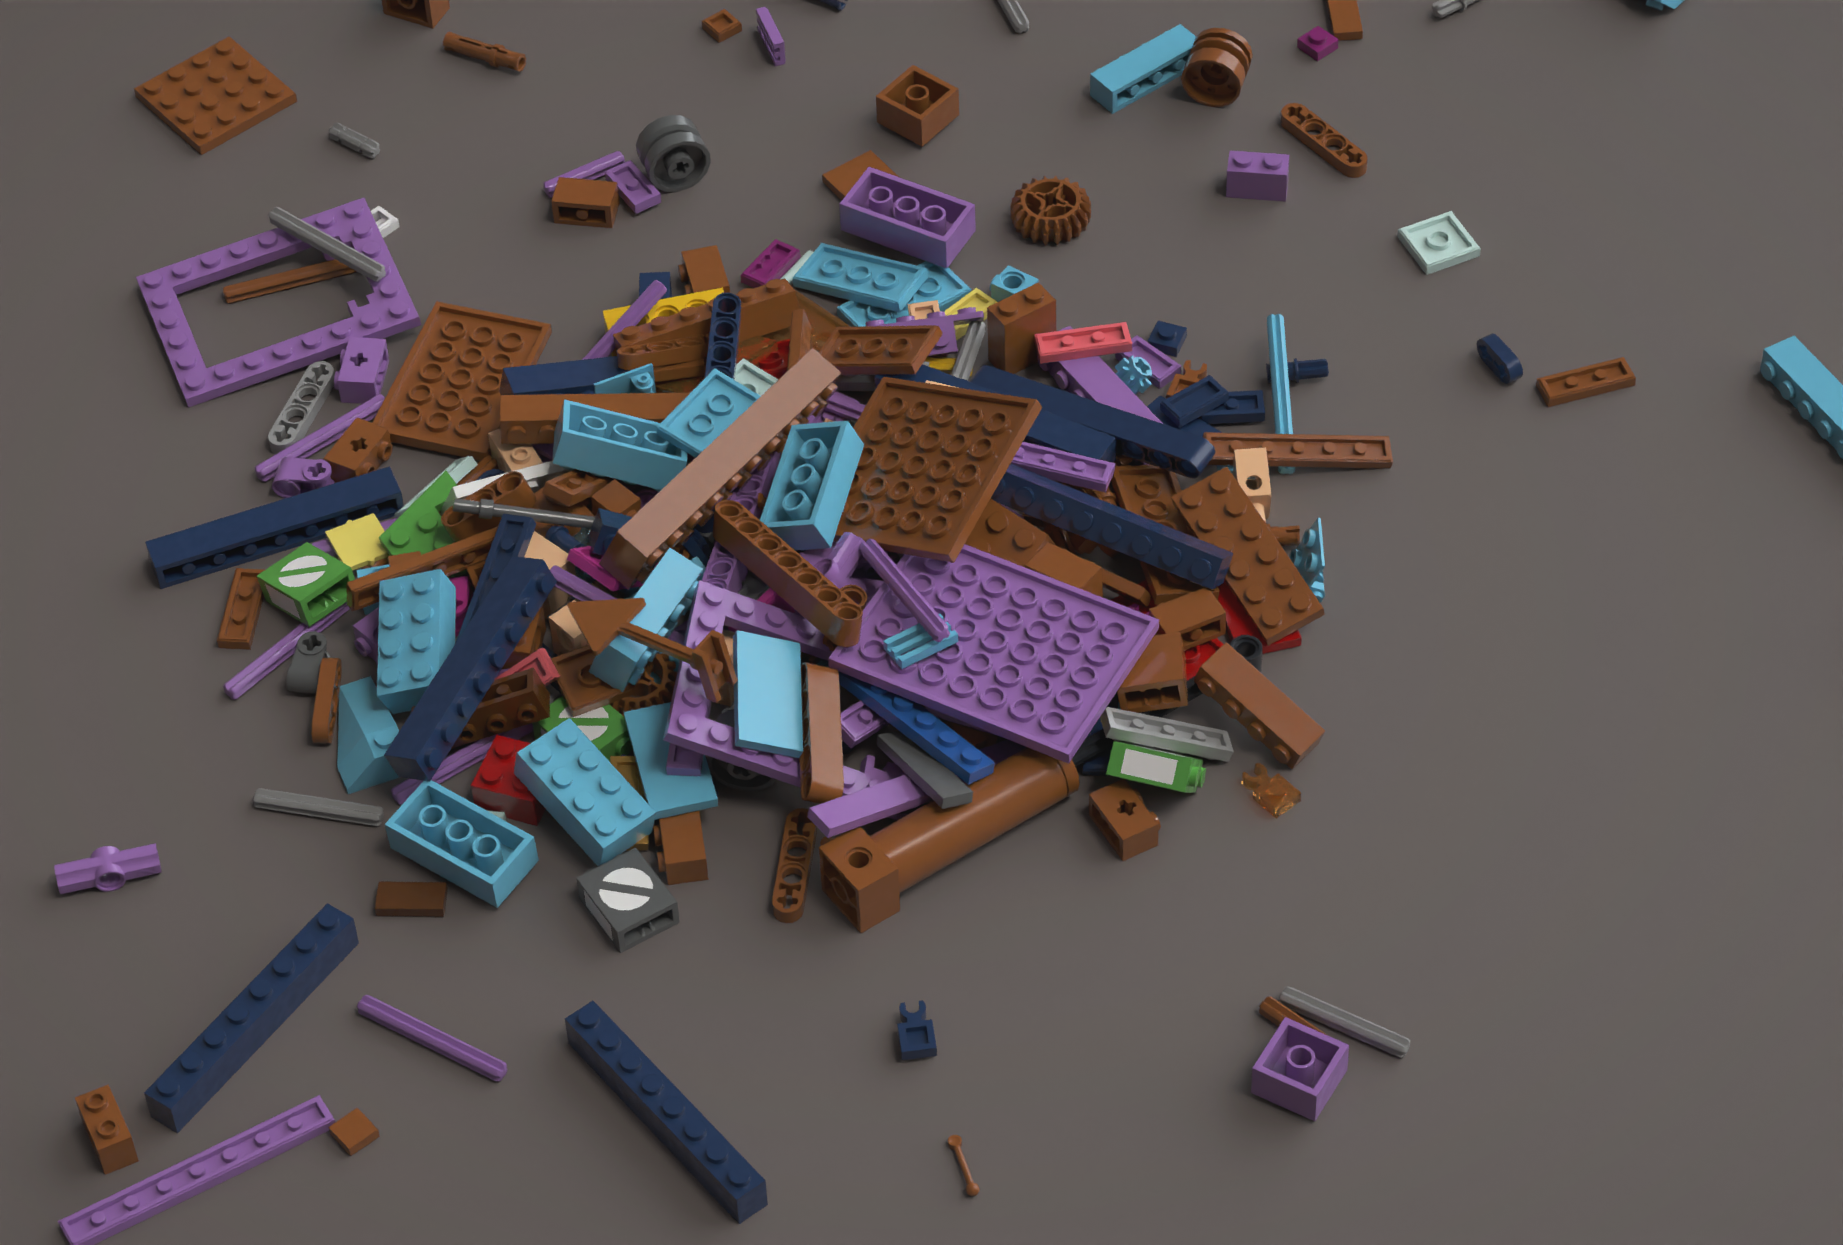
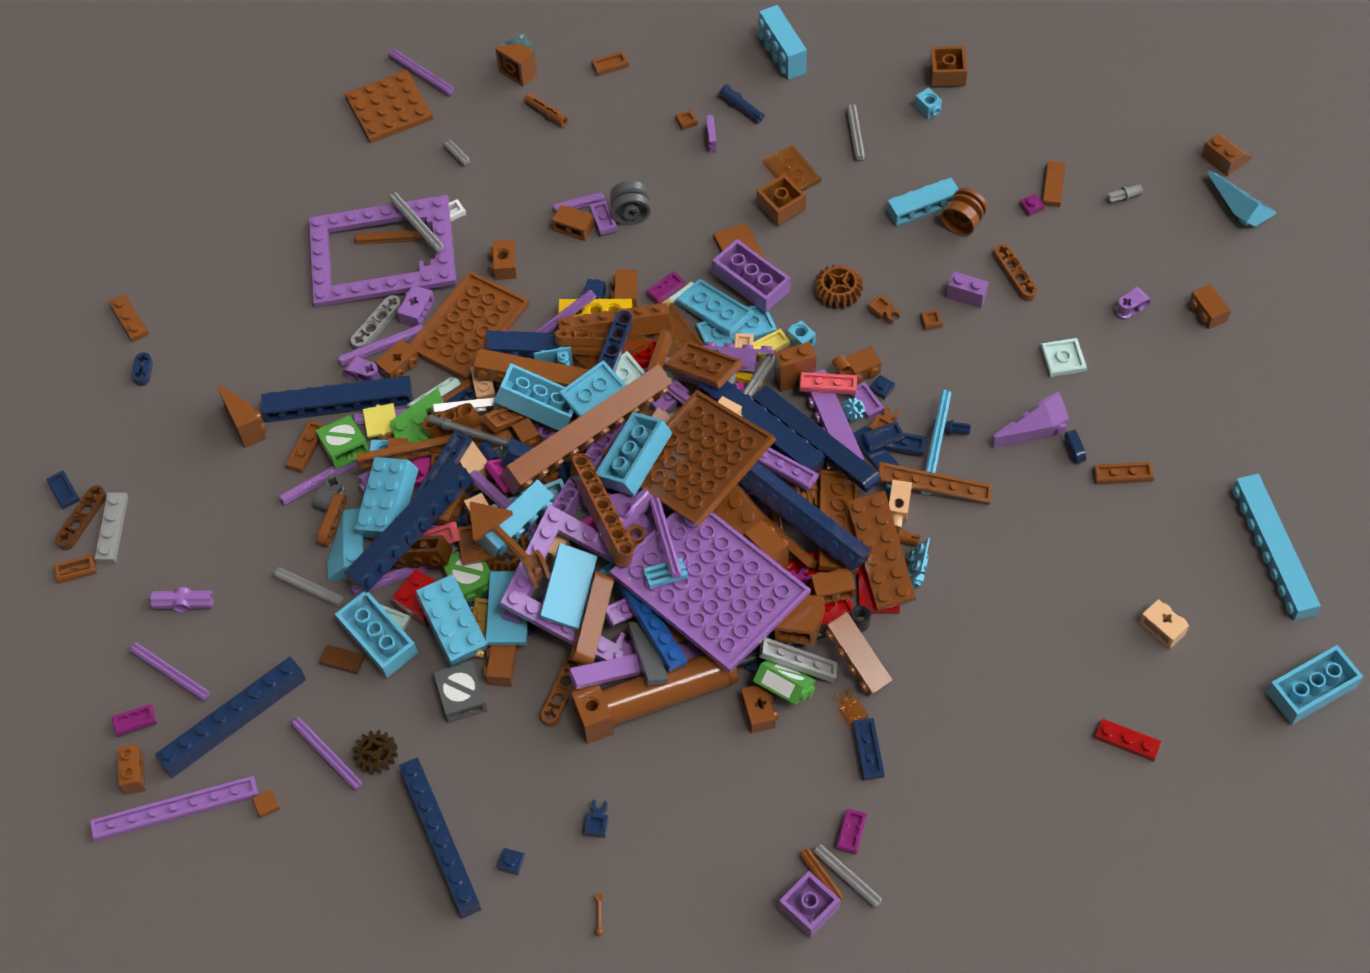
camera: 15 degrees right, 10 degrees up
(85, 1059) = (134, 720): none -> magenta plate
(121, 978) = (169, 671): none -> medium lavender axle
(123, 580) = (246, 420): none -> dark orange slope
(254, 36) = (421, 72): none -> medium lavender axle
(488, 275) = (504, 259): none -> dark orange brick
(515, 1015) = (385, 752): none -> dark brown gear
(794, 1123) = (511, 861): none -> dark blue plate
(912, 49) = (794, 165): none -> clear orange tile
(1127, 304) = (862, 363): none -> dark orange hinge
(1131, 226) = (883, 307): none -> dark orange plate
(1213, 230) = (931, 319): none -> dark orange tile
(1318, 839) = (868, 749): none -> dark blue plate
(1330, 958) = (851, 831): none -> magenta plate
(1433, 337) = (1041, 423): none -> medium lavender wedge
(1521, 147) = (1132, 303): none -> medium lavender piece
(1642, 128) = (1209, 306): none -> dark orange brick
(1716, 741) = (1128, 740): none -> red plate
(1719, 571) = (1164, 623): none -> light nougat brick

